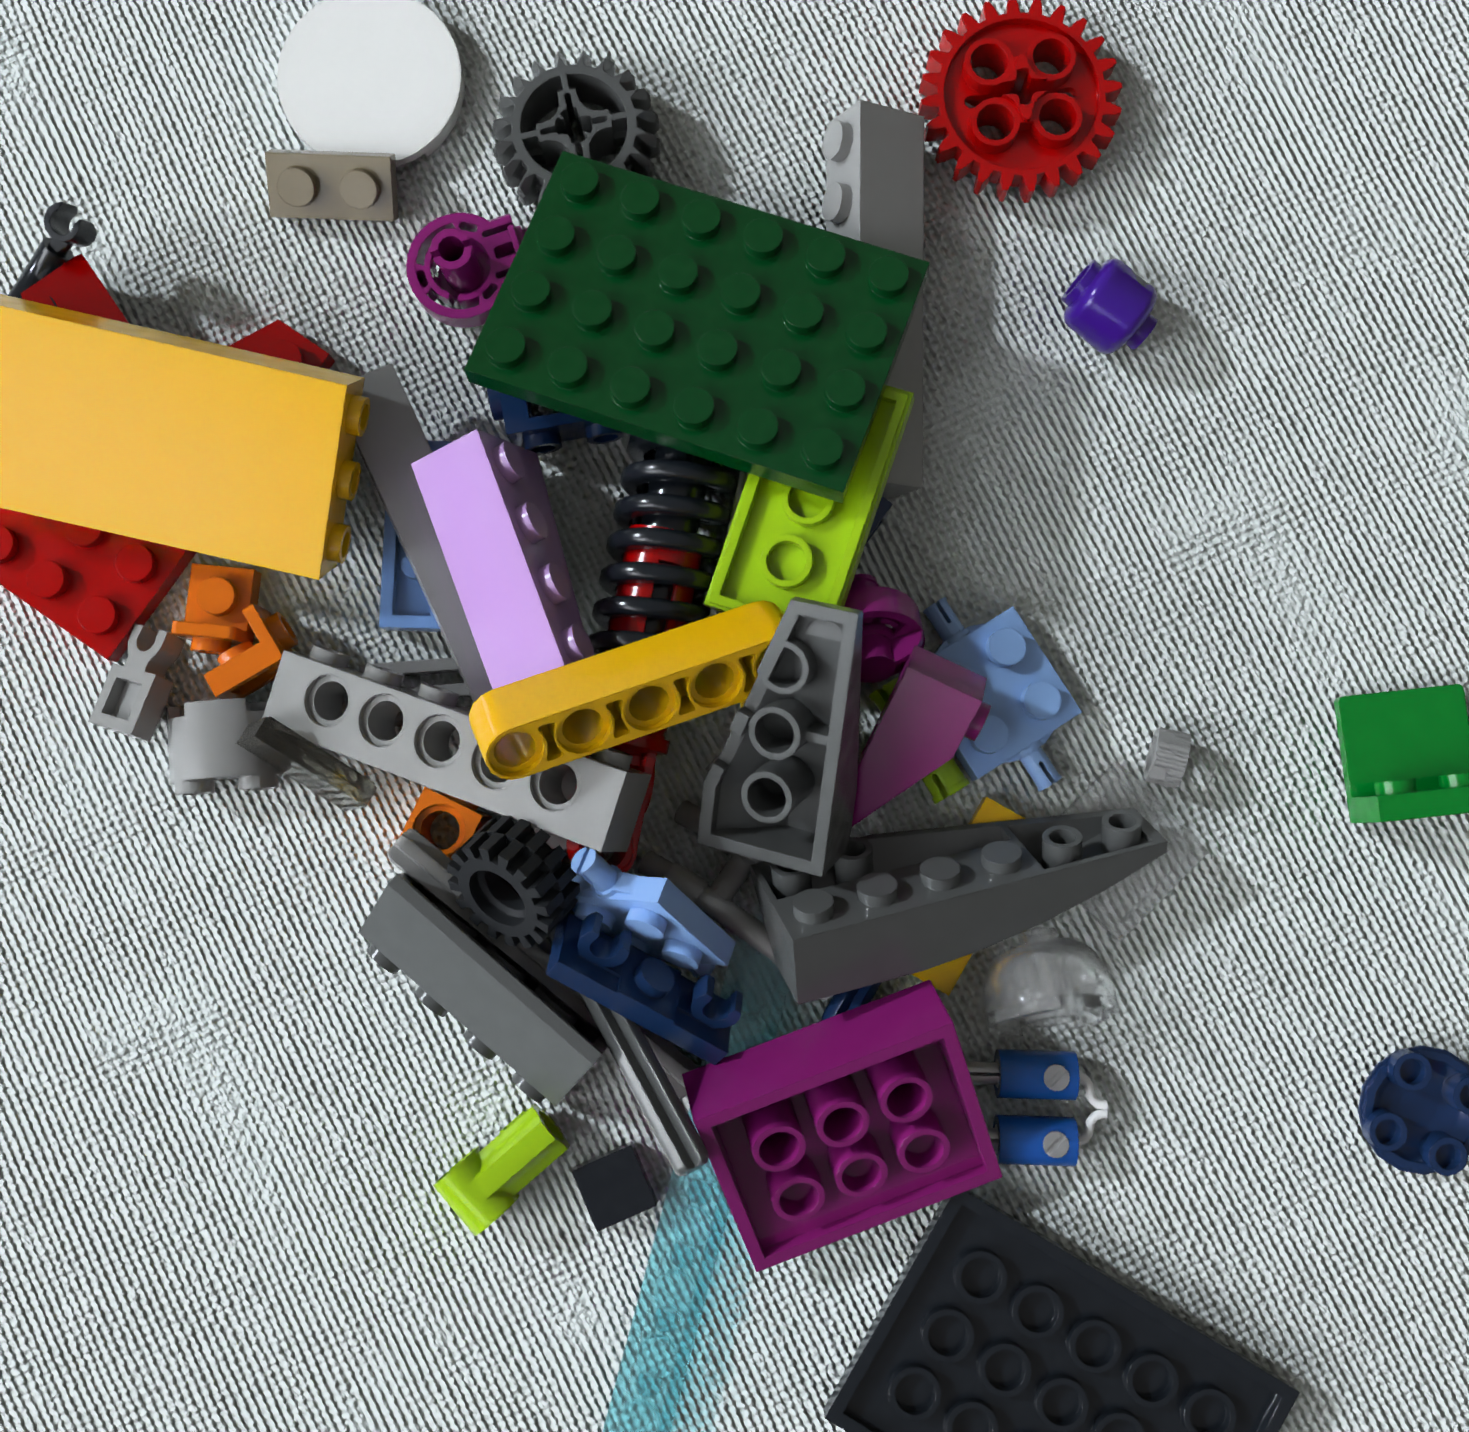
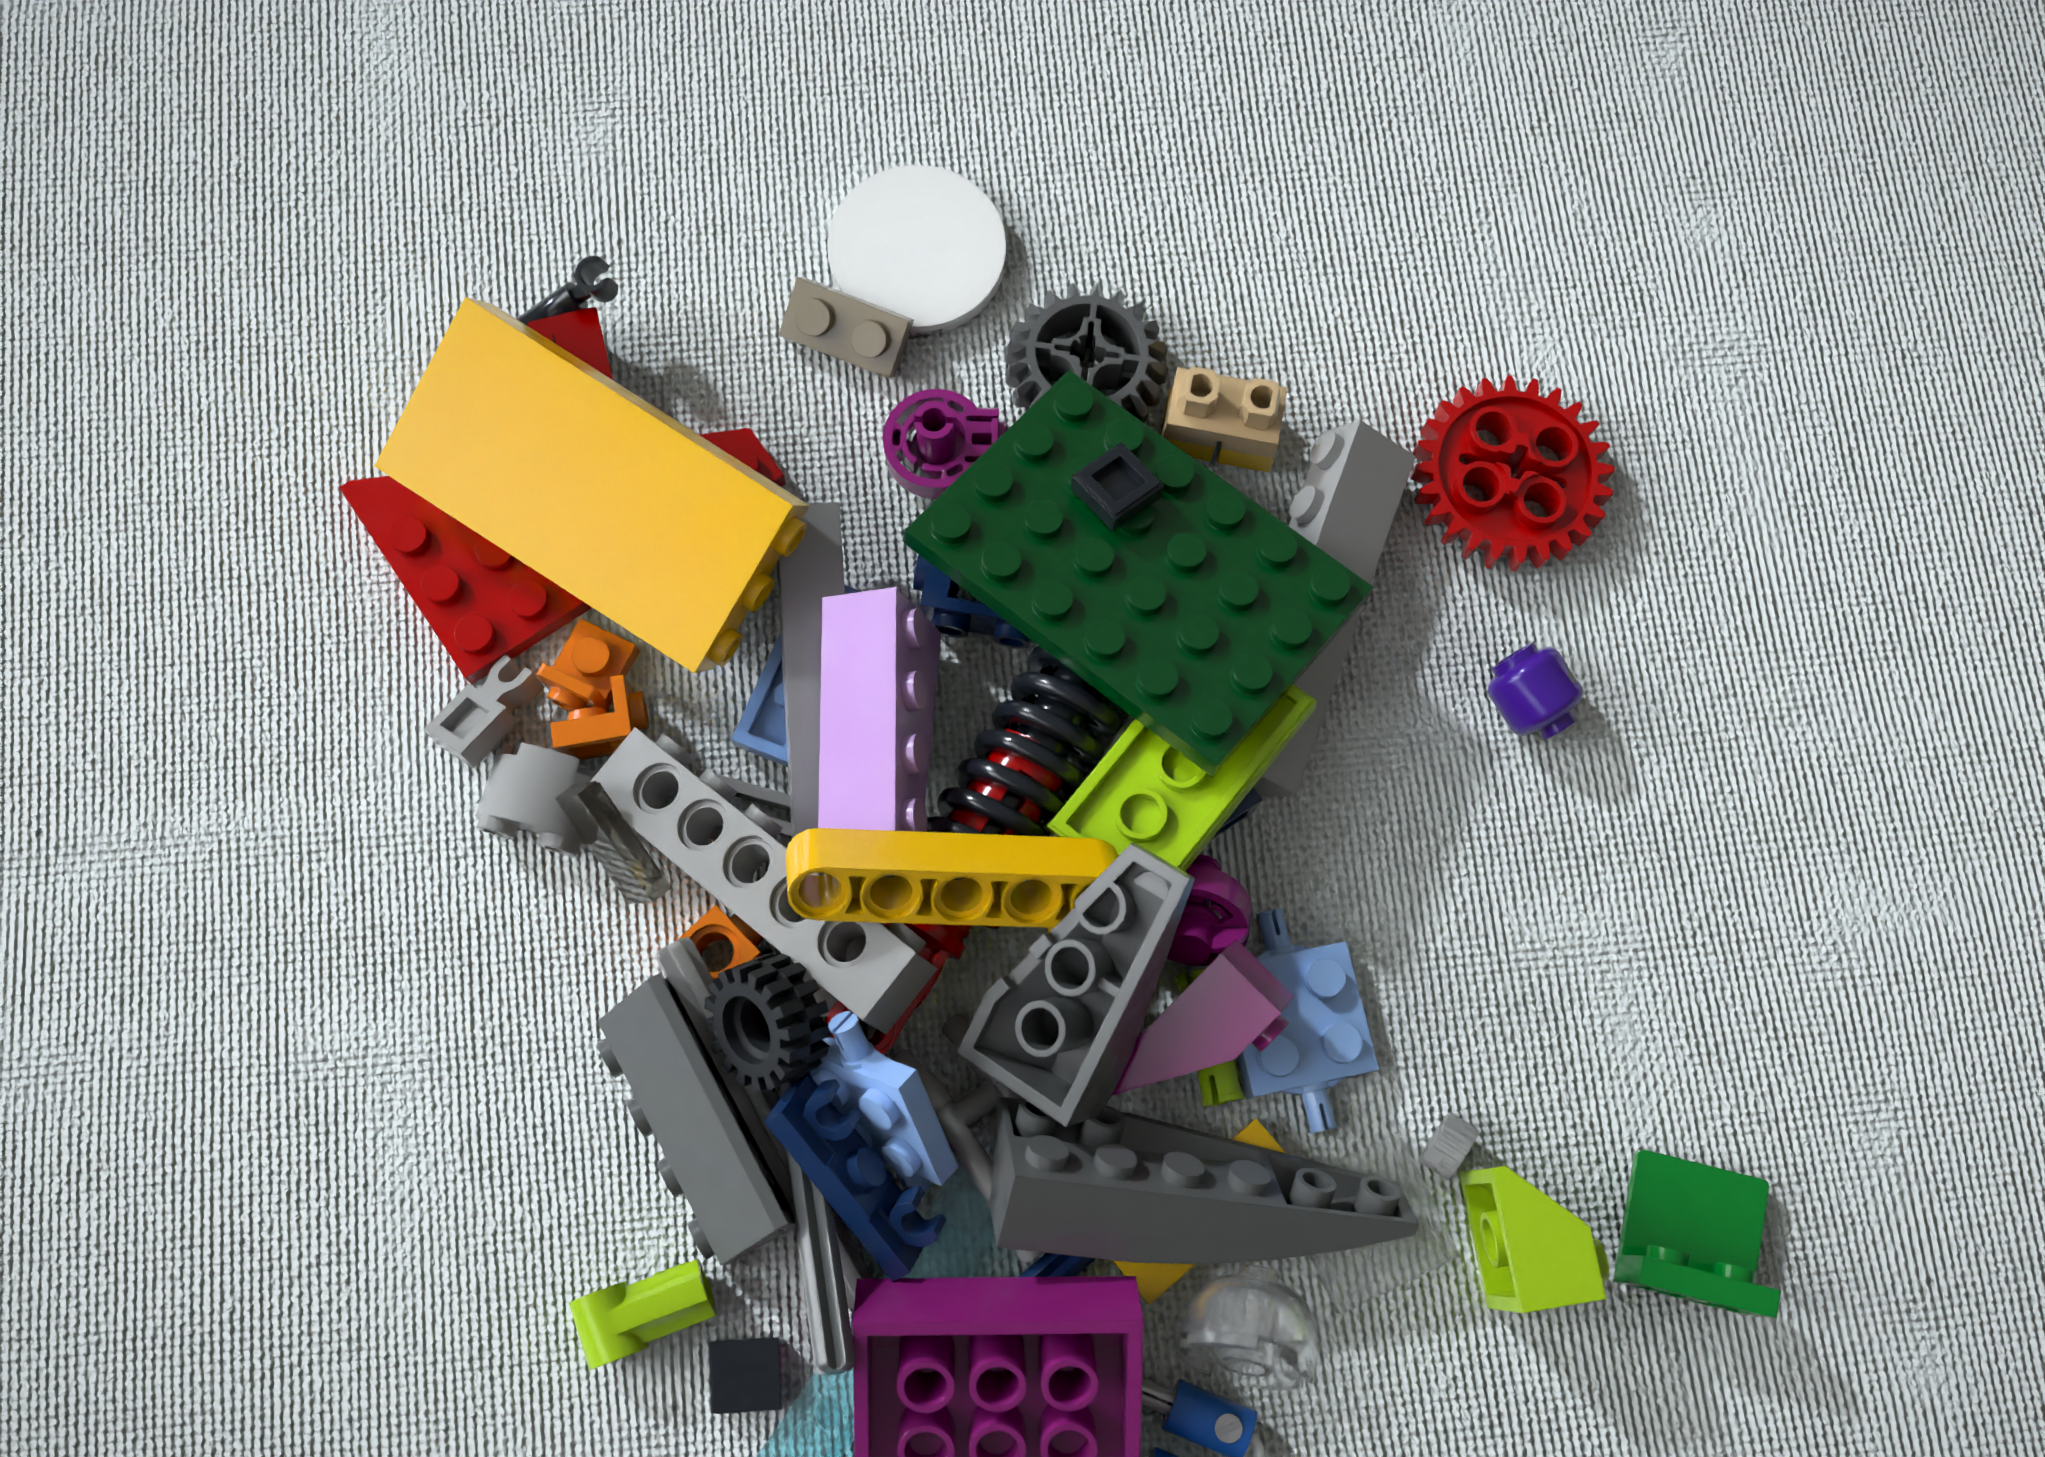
camera: 15 degrees right, 10 degrees down
(651, 252) = (1117, 486): none -> black tile
(725, 136) = (1228, 410): none -> tan hips
(1272, 826) = (1529, 1245): none -> lime slope

